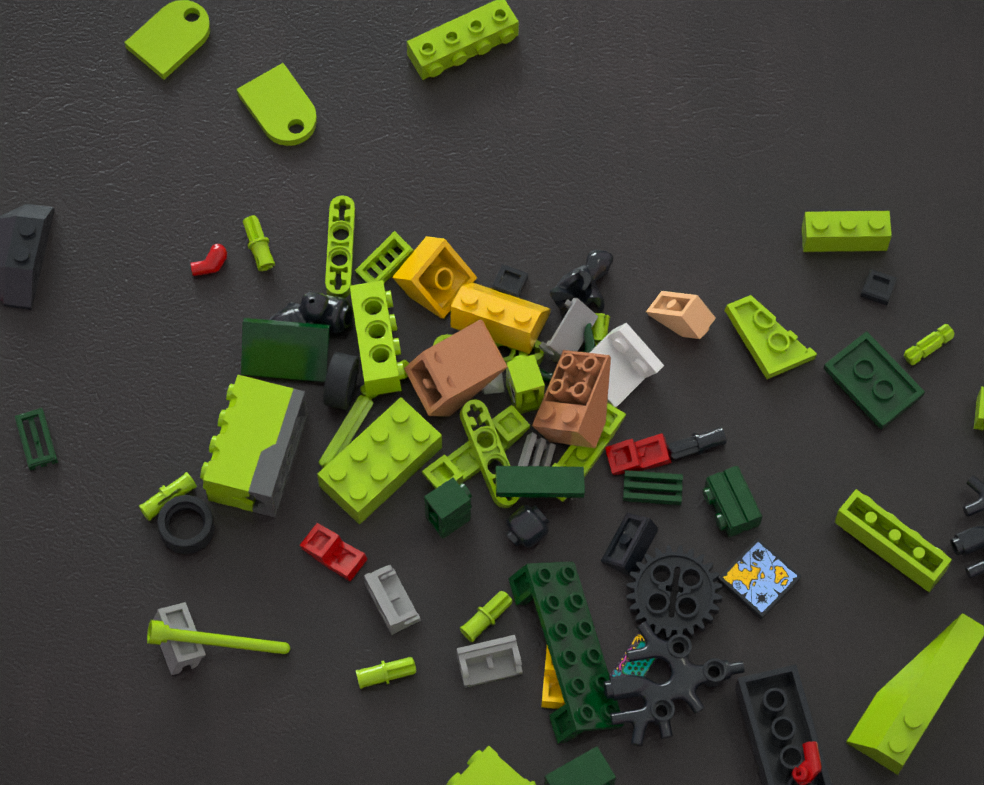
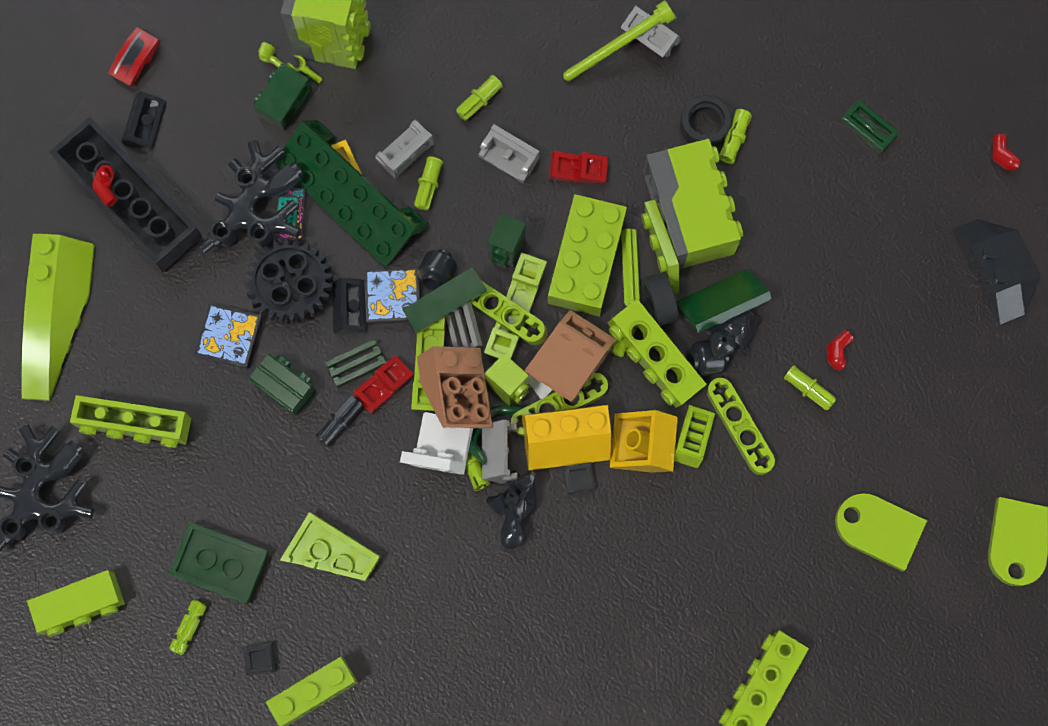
camera: 150 degrees right, 10 degrees up
(306, 430) = (661, 244): none -> lime wing
(583, 531) = (390, 292): none -> tile
(682, 314) = (415, 528): light nougat slope -> none

